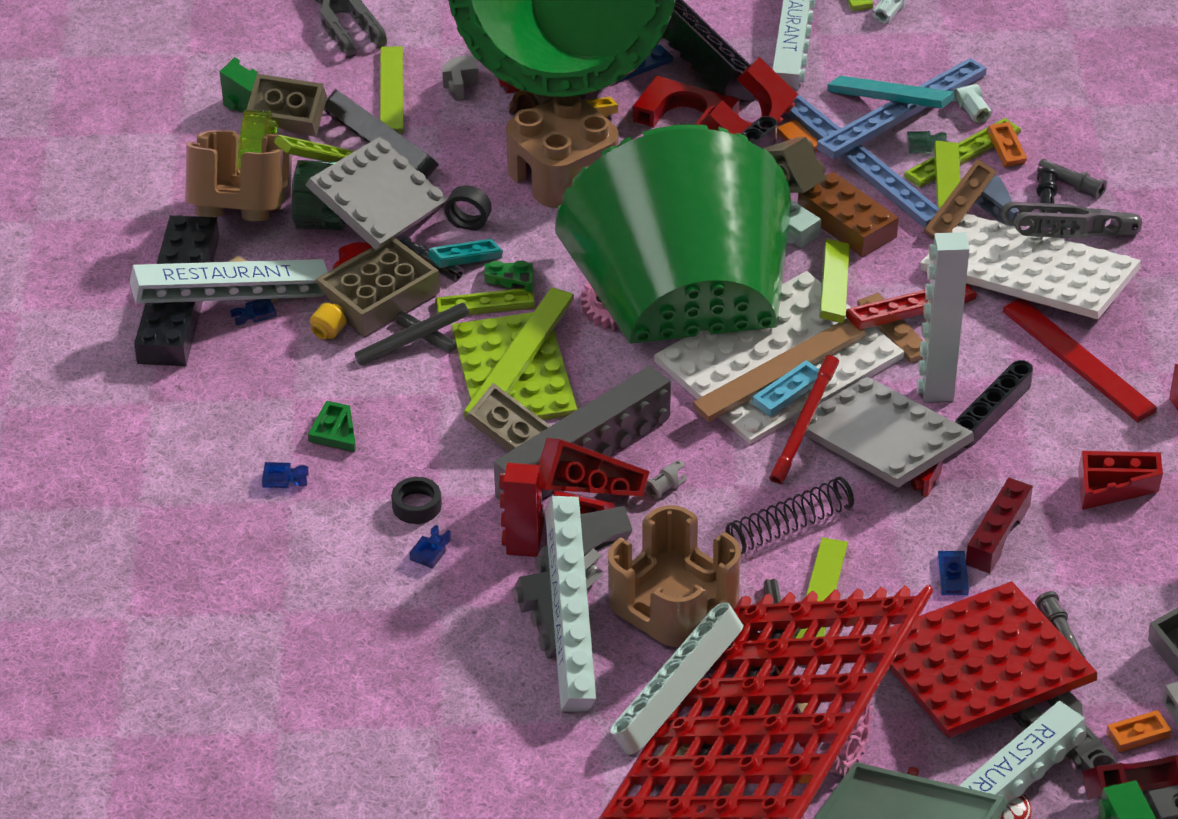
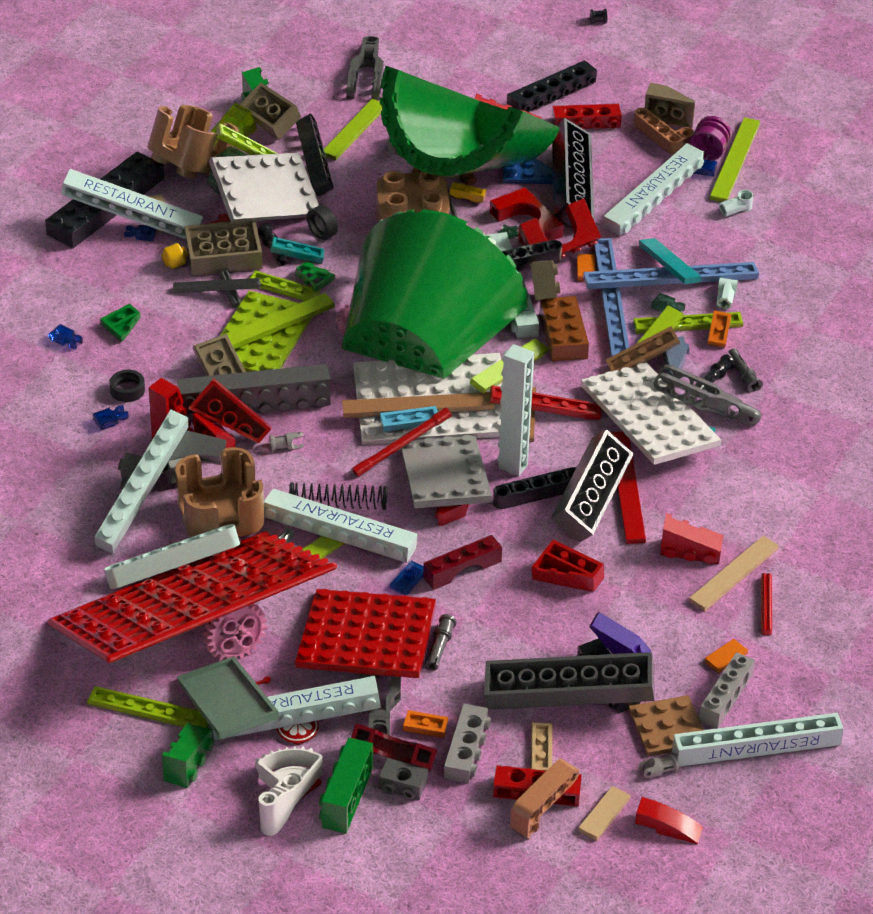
camera: 30 degrees right, 0 degrees up
(837, 546) = (340, 525): none -> light aqua brick
(1059, 373) = (592, 486): none -> dark grey brick

